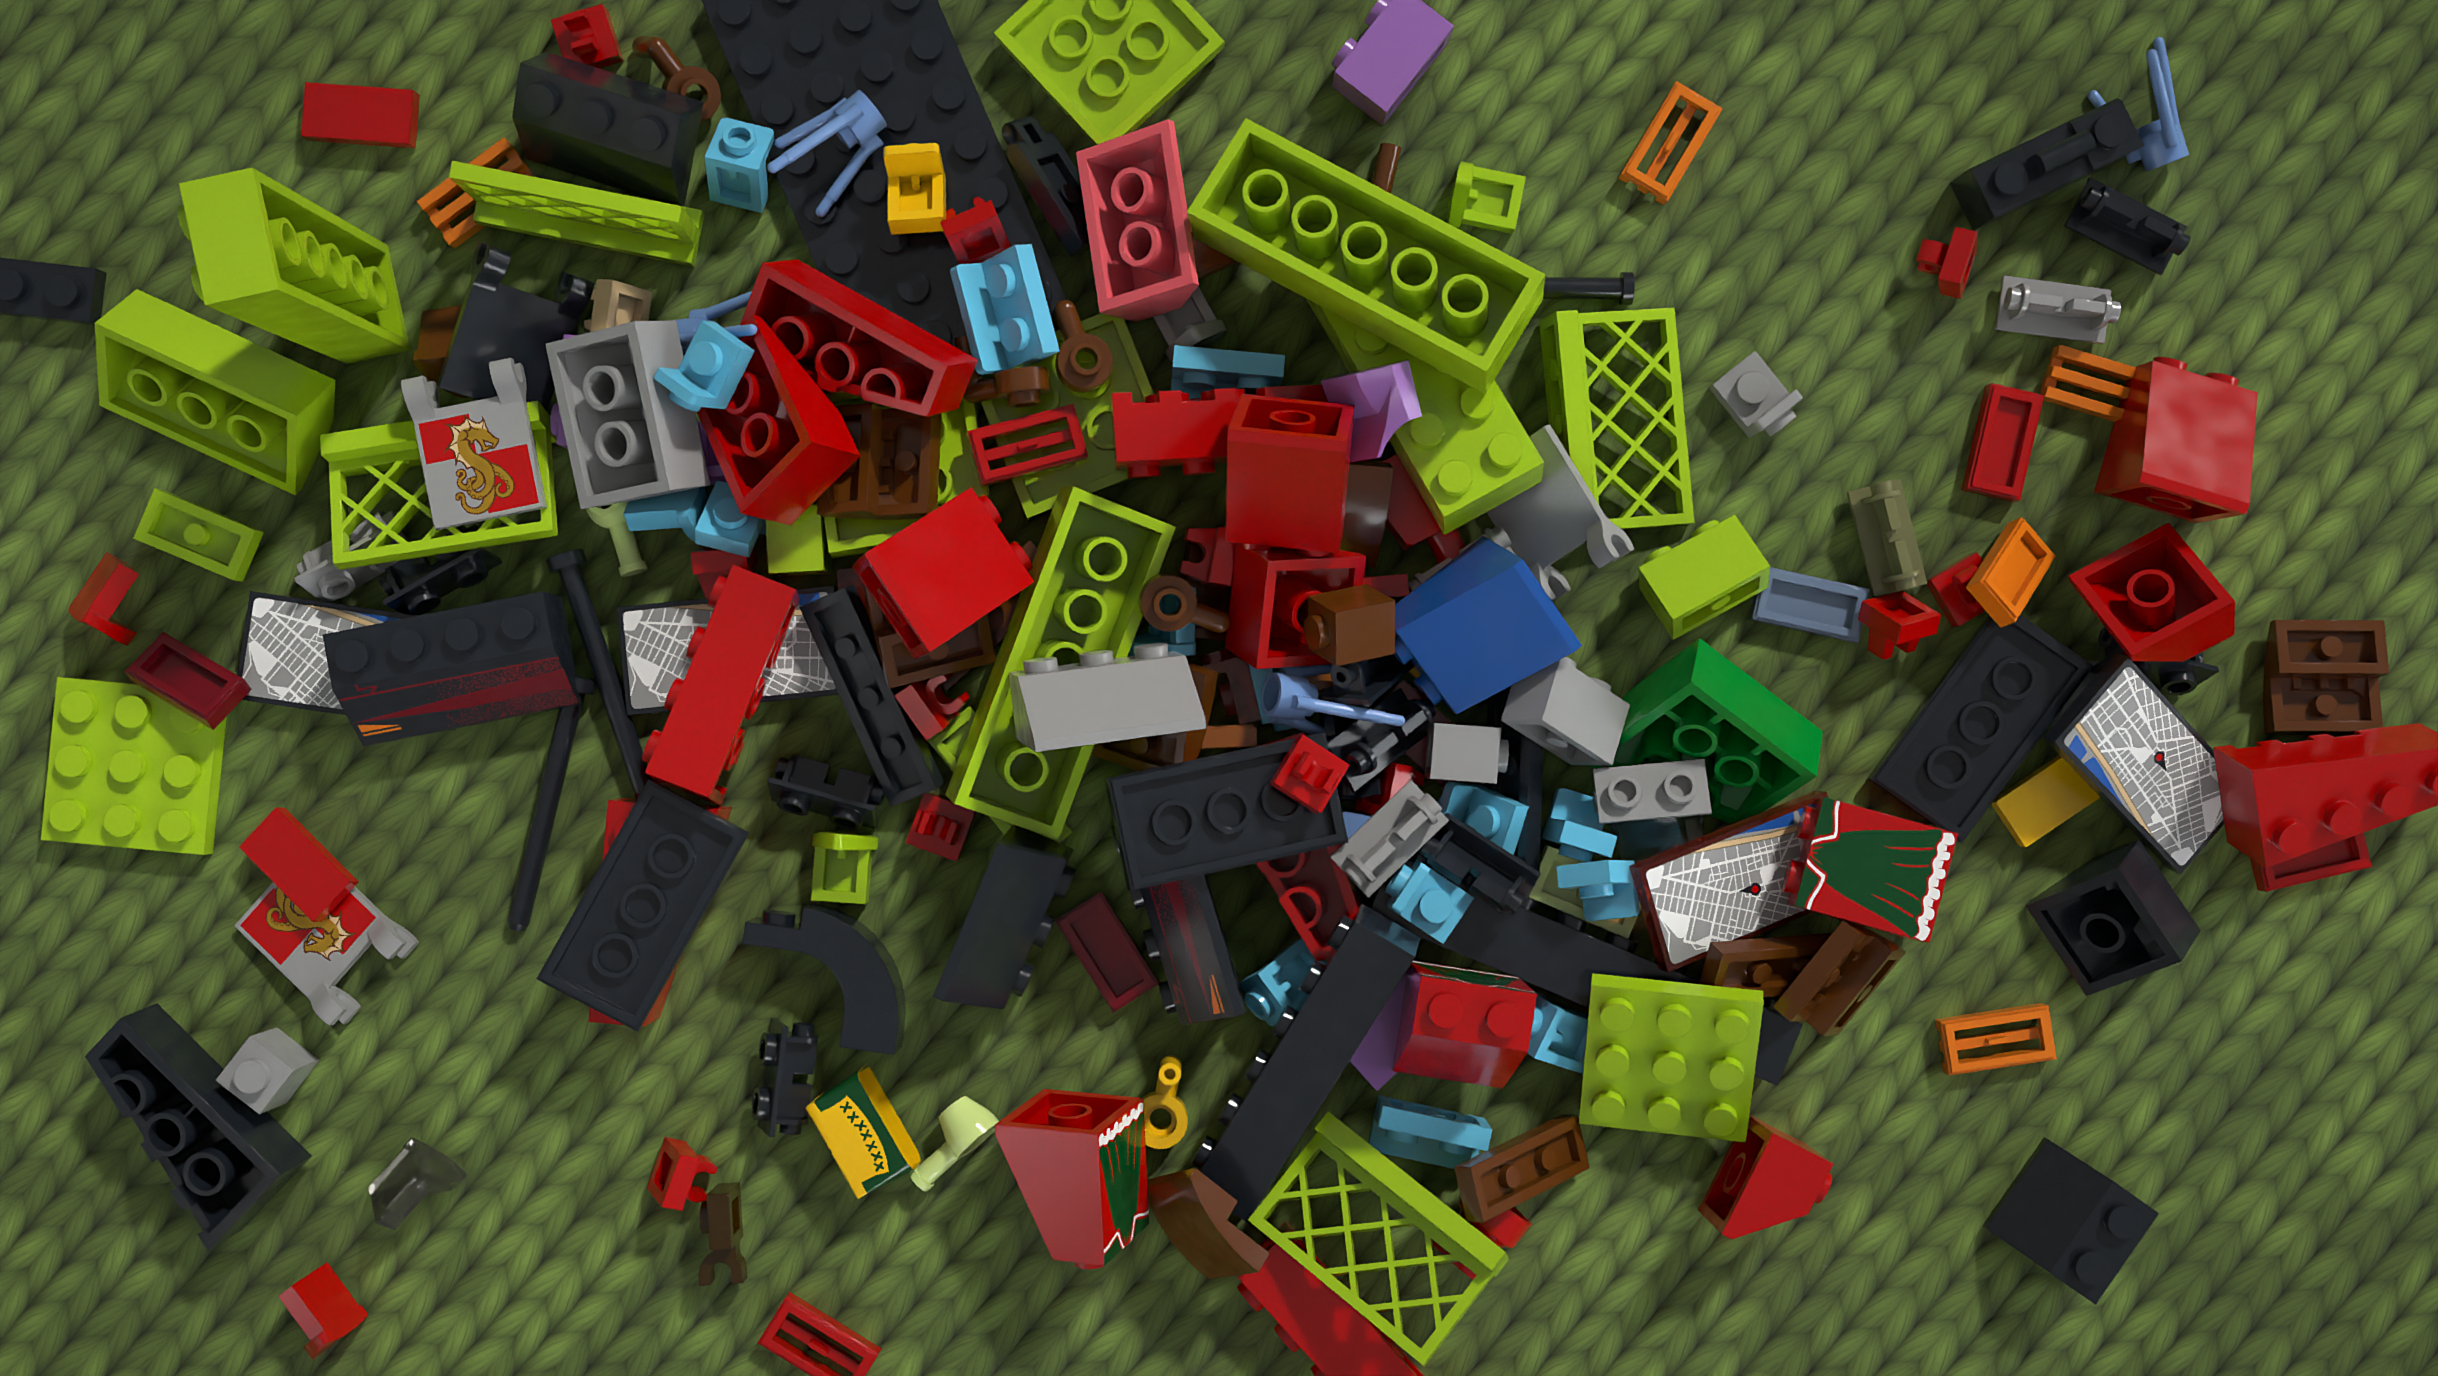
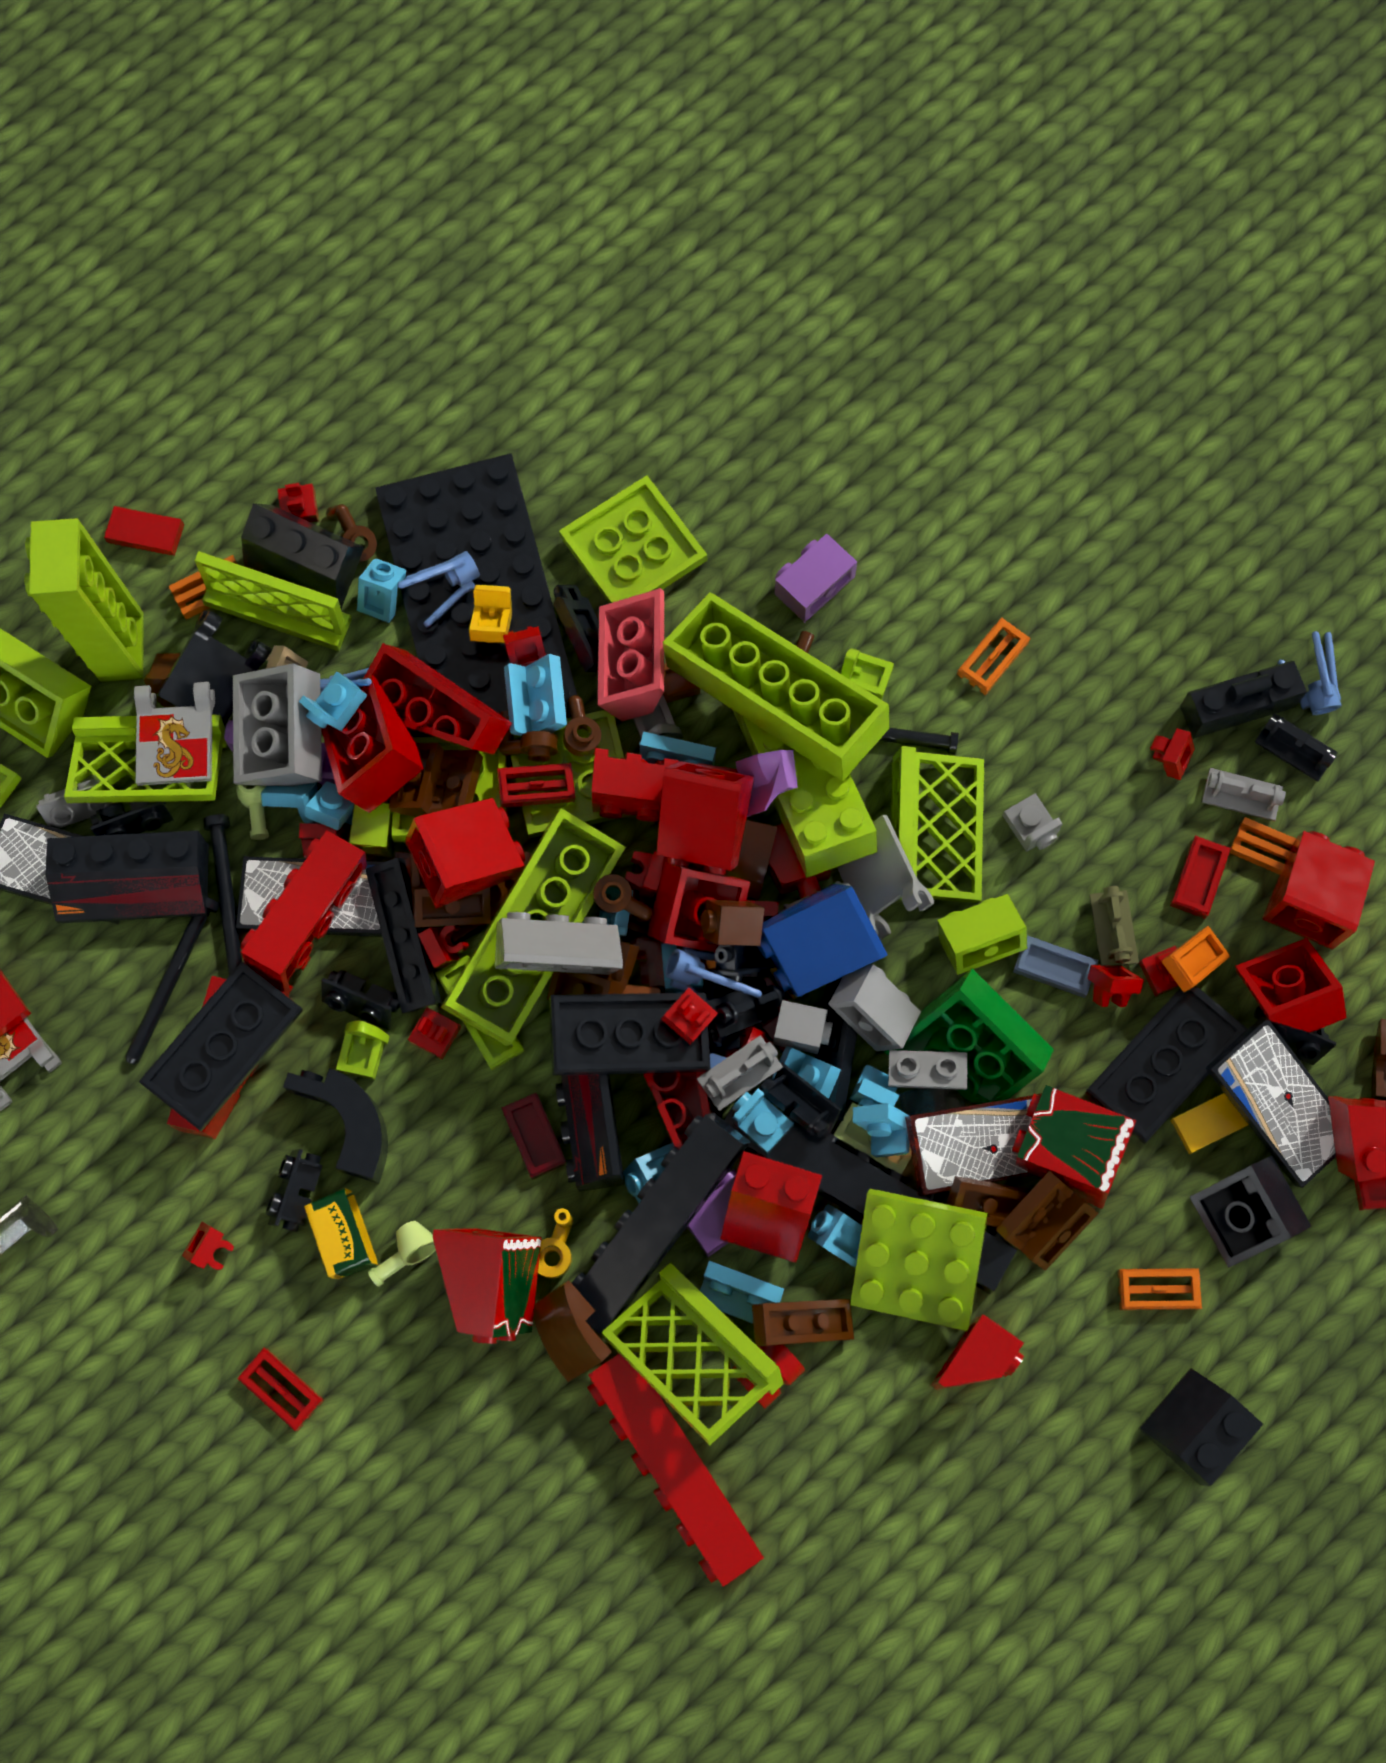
camera: 15 degrees right, 15 degrees down
(722, 1220) = (230, 1285): dark brown plate -> none
(1007, 920) = (466, 1096): black slope -> none

